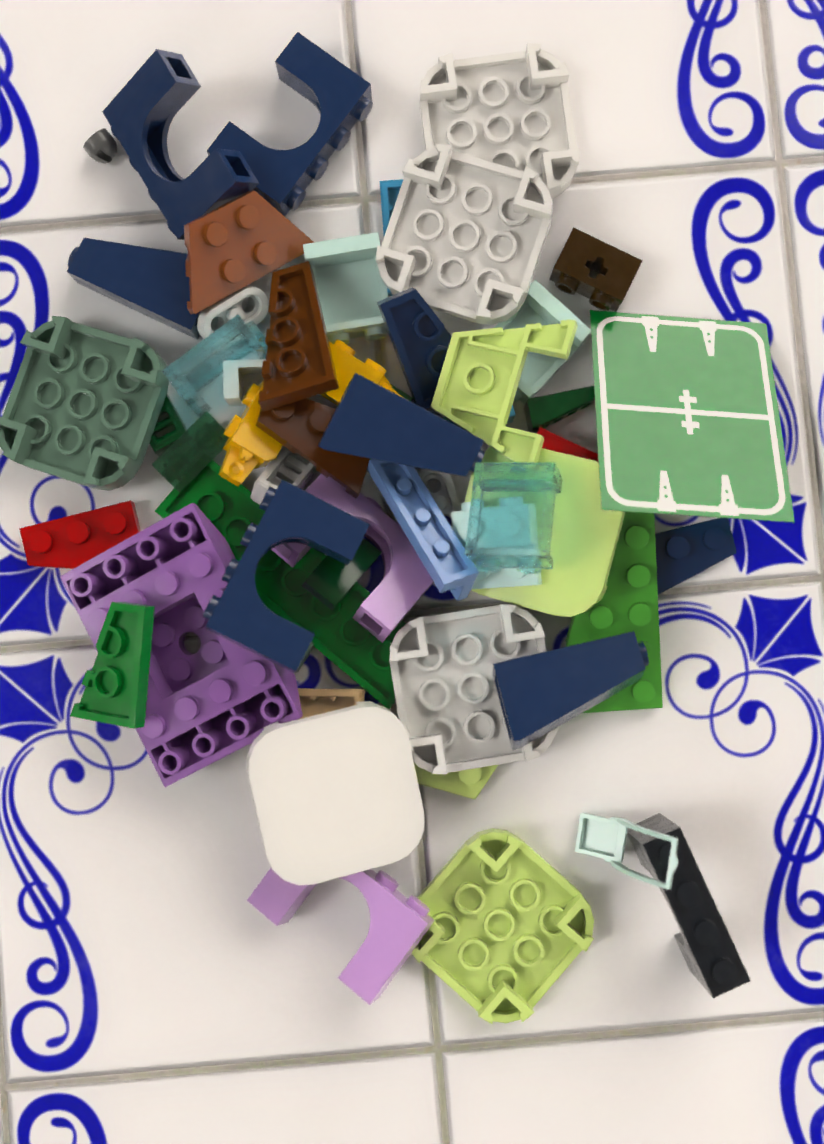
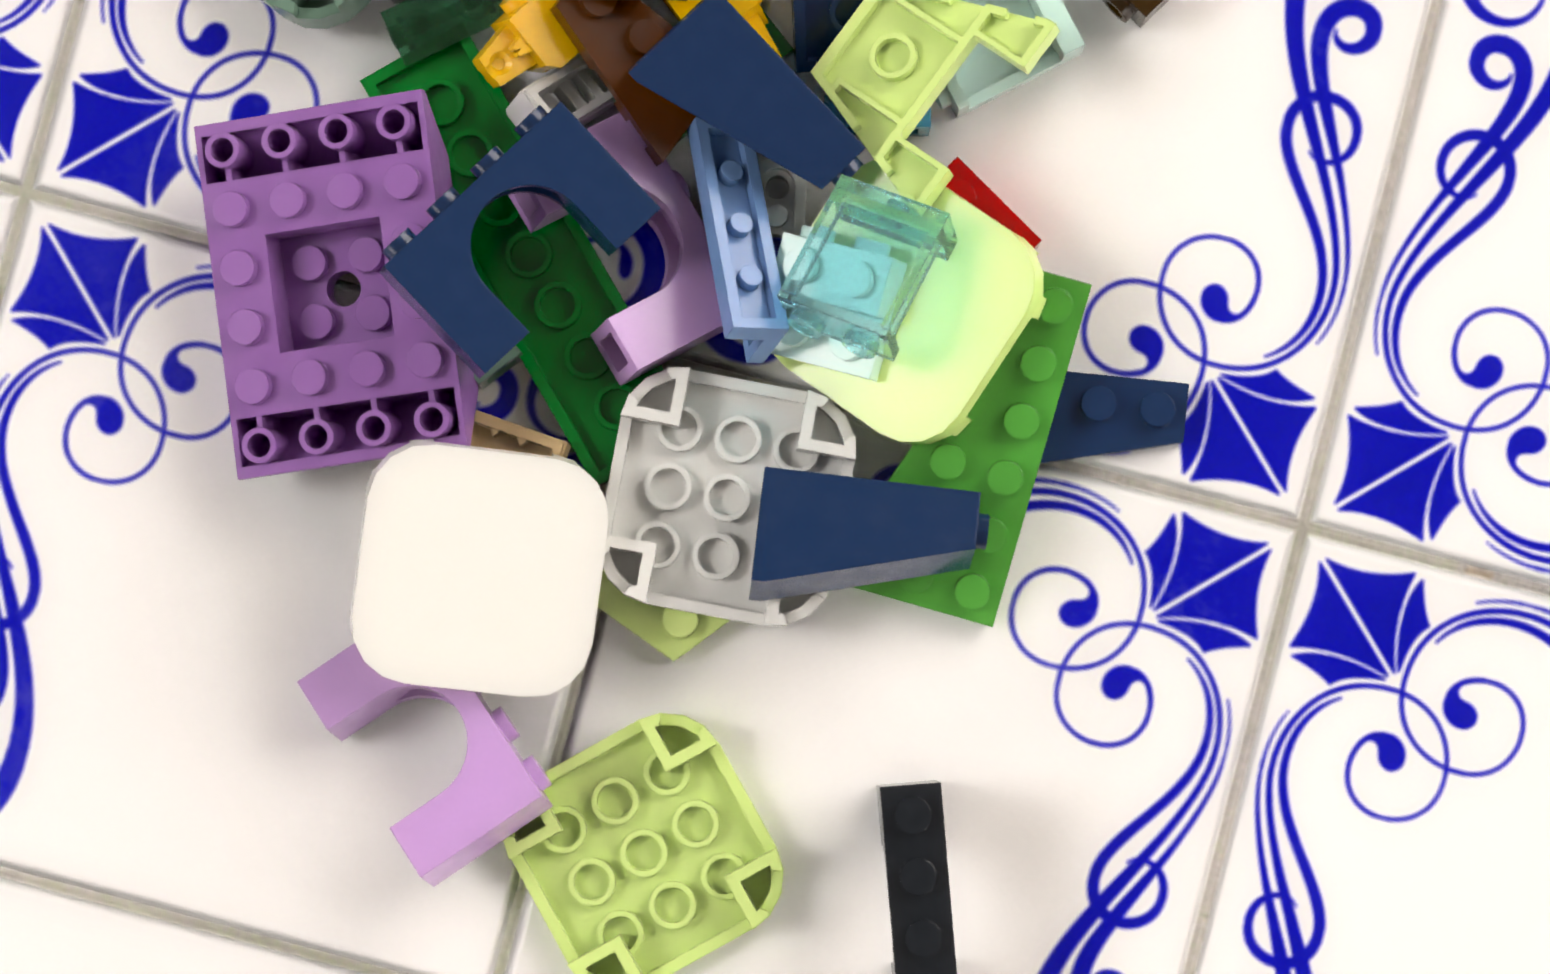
camera: 20 degrees right, 0 degrees up
(79, 537) = (236, 80): red wing -> none
(120, 674) = (236, 292): green wing -> none
(334, 580) = (585, 272): dark green slope -> none
(552, 408) = (991, 137): dark green slope -> none
(607, 840) = (842, 784): light aqua piece -> none
(687, 417) = (1174, 214): sticker -> none

